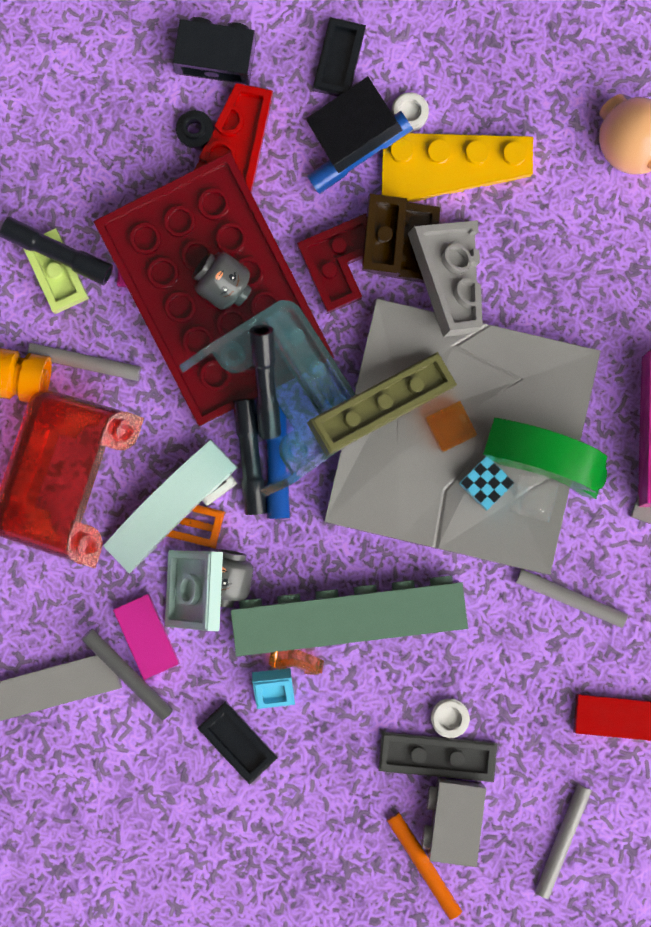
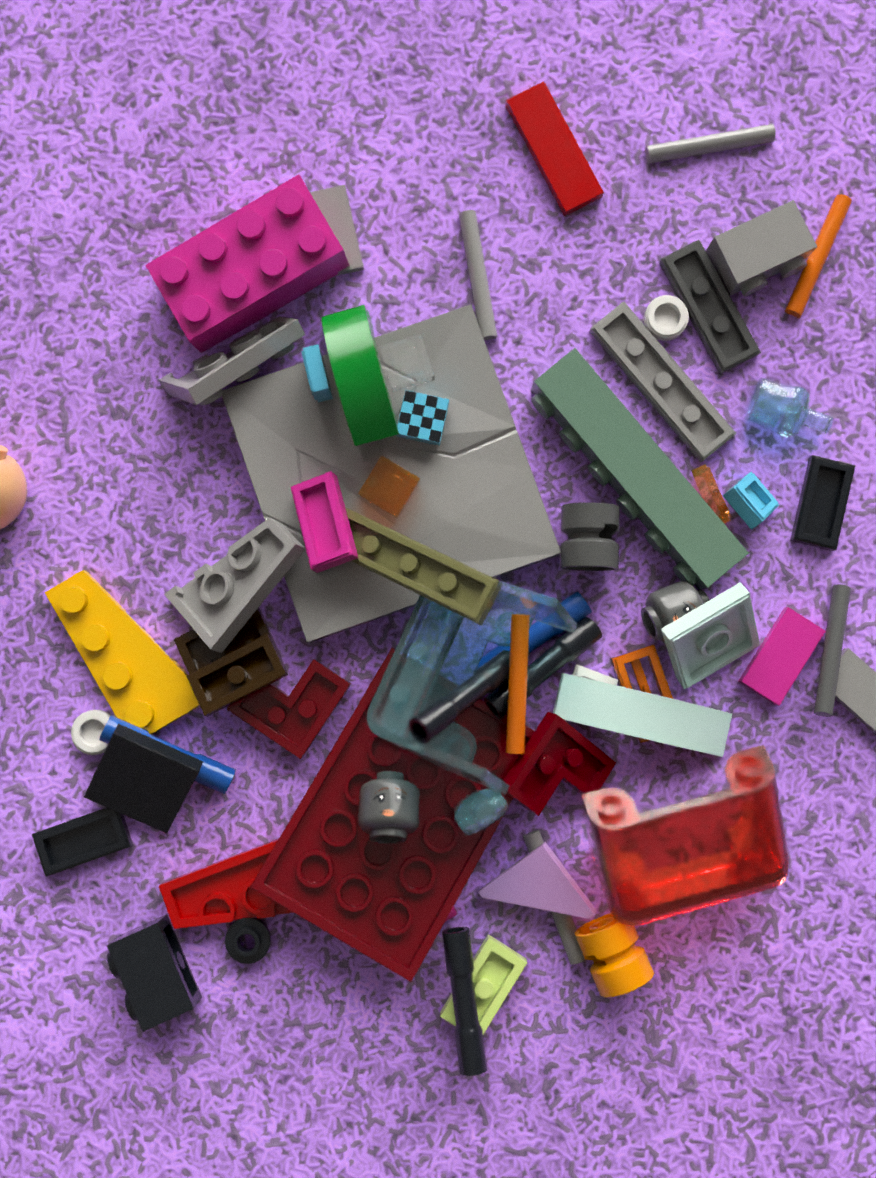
camera: 125 degrees left, 0 degrees up
(100, 356) = (540, 883): none -> lavender tile
(179, 341) = (479, 810): none -> clear light blue piece
(184, 419) = (554, 755): none -> dark red plate
(250, 426) = (517, 683): none -> orange bar
(321, 550) = (590, 537): none -> dark grey wheel
(324, 759) = (784, 409): none -> clear light blue piece
(403, 683) = (662, 382): none -> light grey tile
(454, 362) = (324, 522): none -> dark pink tile
(567, 425) = (316, 373): none -> medium azure tile
(616, 361) = (220, 369): none -> light grey wing

